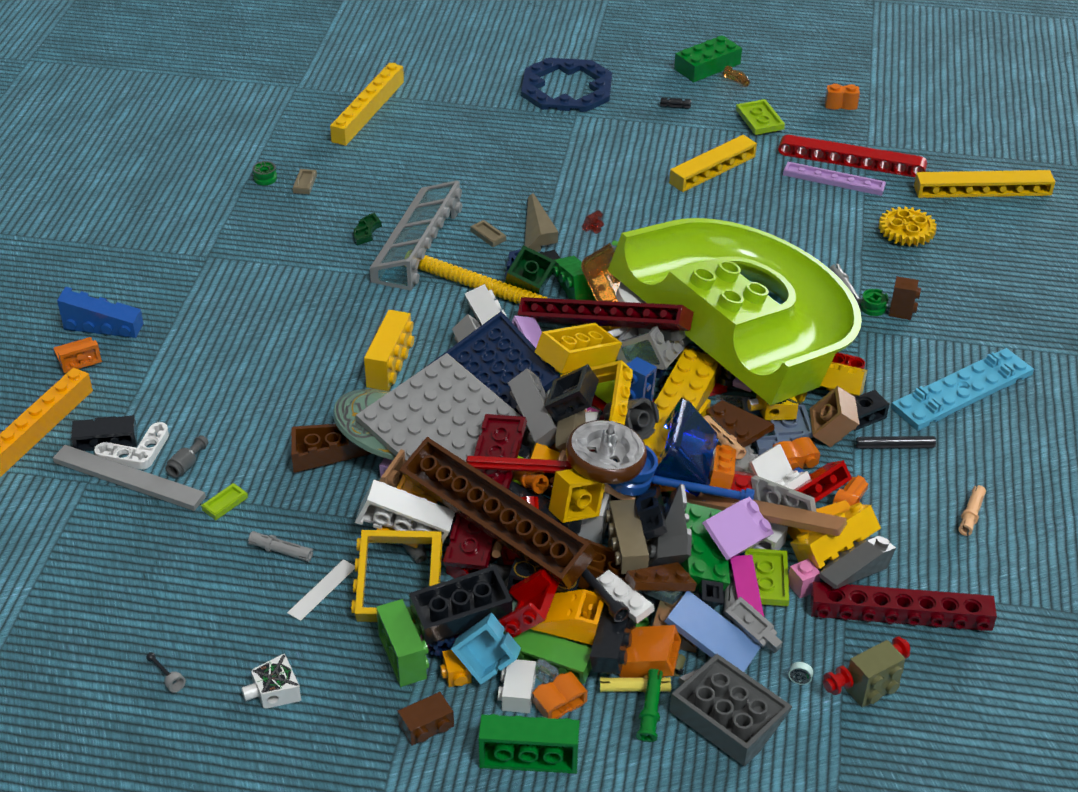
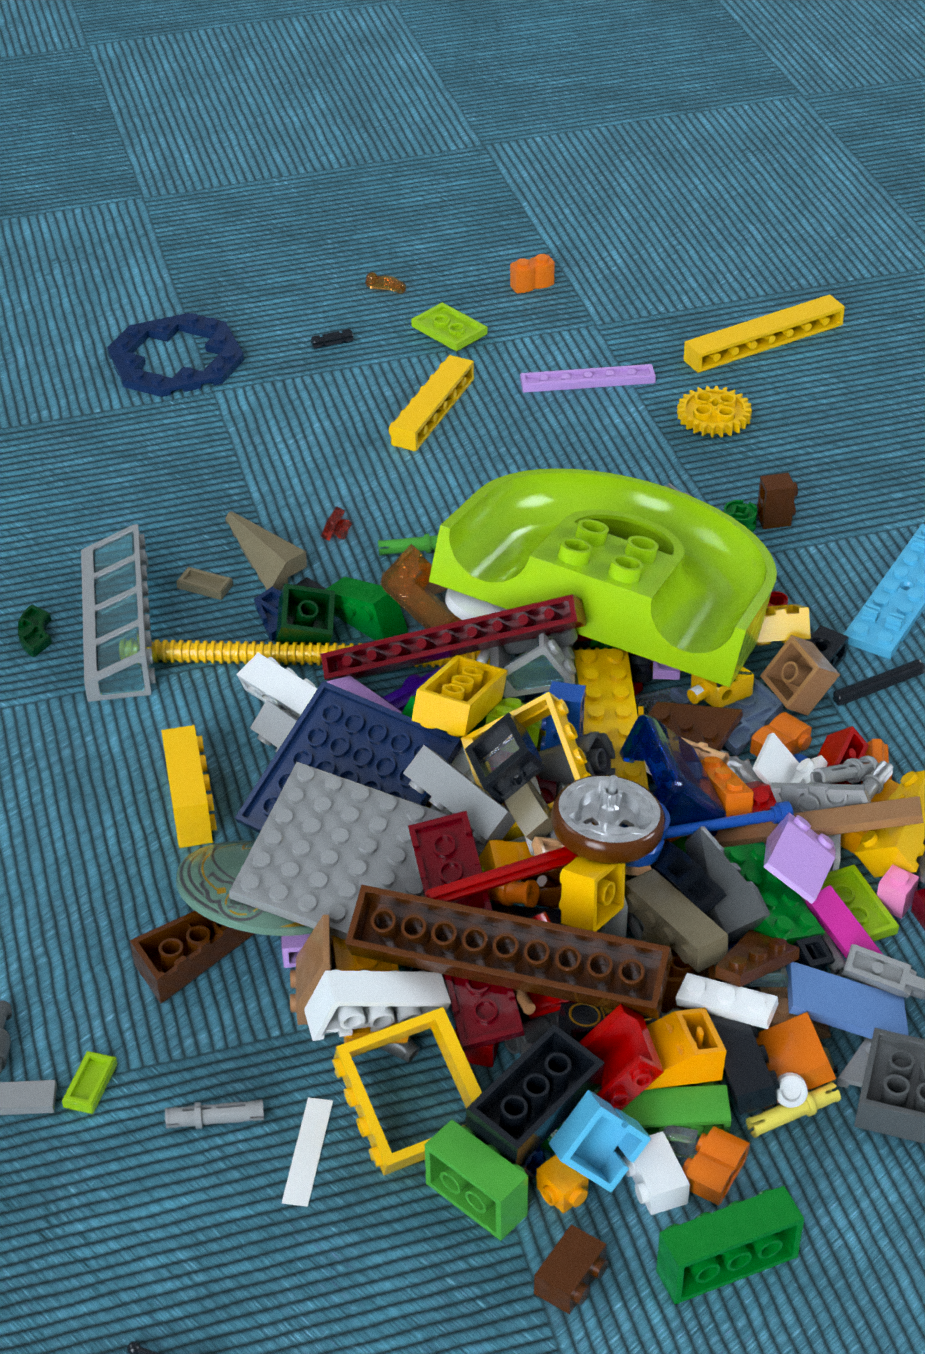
camera: 25 degrees left, 0 degrees up
(273, 684) = (338, 1311): torso -> none
(616, 608) = (737, 1020): black piece -> none
(634, 669) = (792, 1090): none -> white tile
(649, 715) = (840, 1141): green pin -> none
(707, 58) = (336, 270): green brick -> none
(819, 488) = (851, 771): none -> light grey pin
(831, 502) = (877, 778): none -> light grey axle
(860, 154) = (591, 343): red beam -> none

